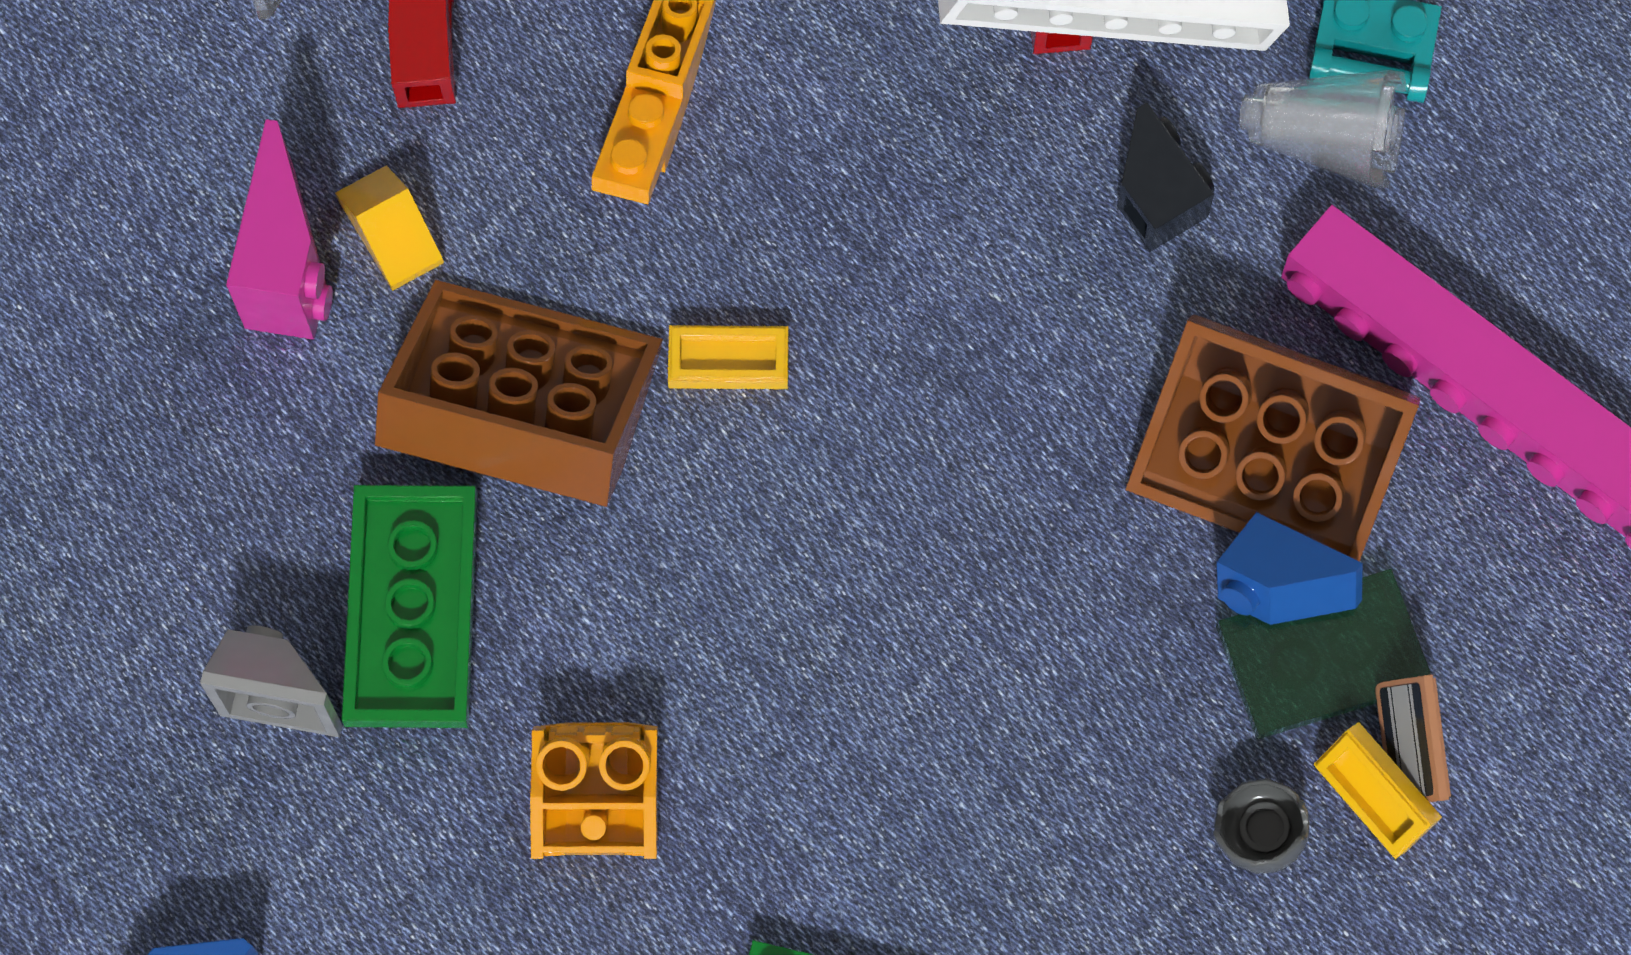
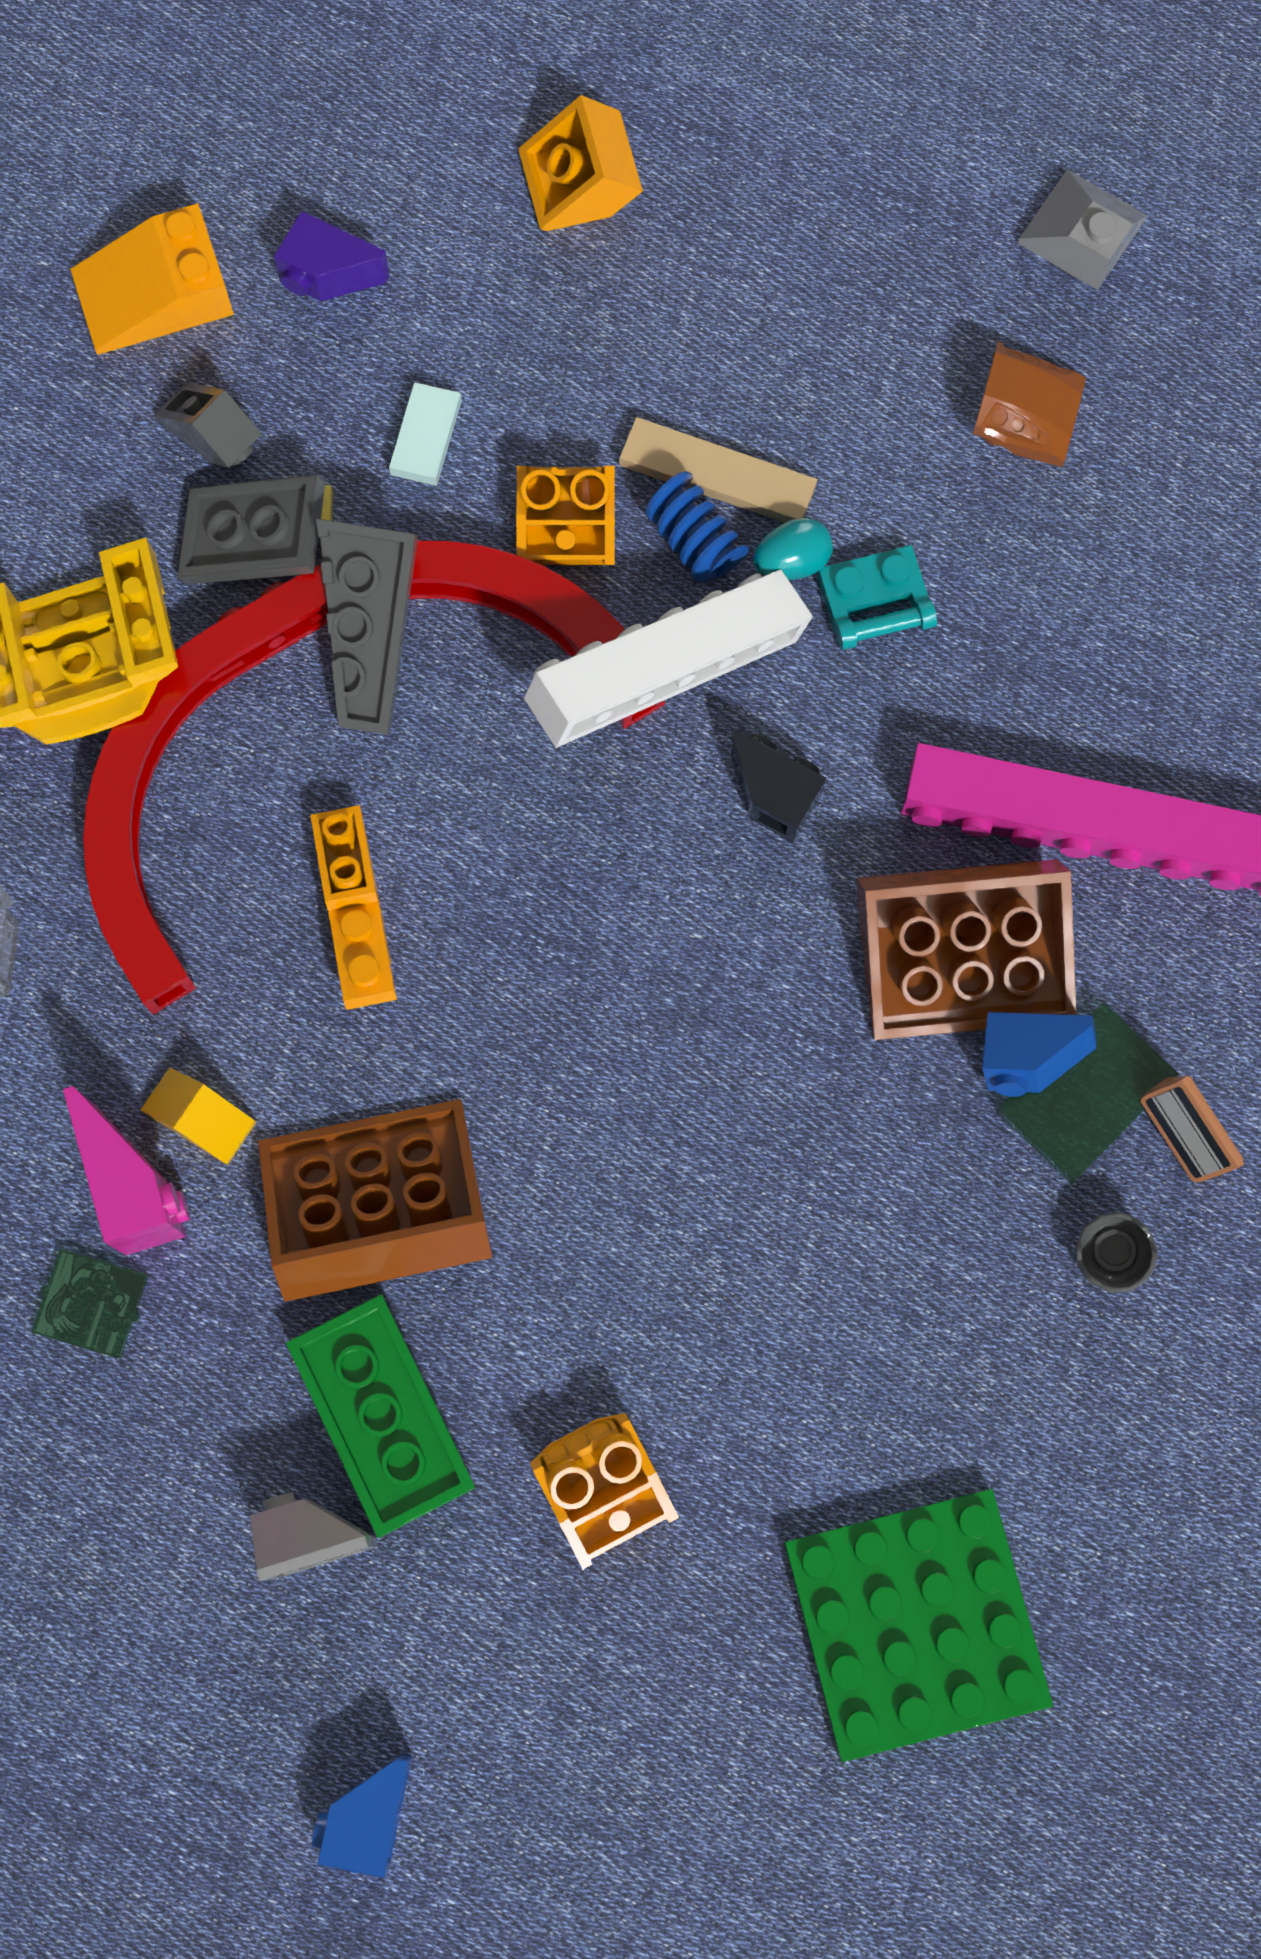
camera: 30 degrees left, 5 degrees up
(184, 357) = (90, 1304): none -> clear green piece
(728, 357) = (519, 1087): yellow tile -> none
(1331, 122) = (880, 677): clear cone -> none
(1377, 790) = (1184, 1180): yellow tile -> none

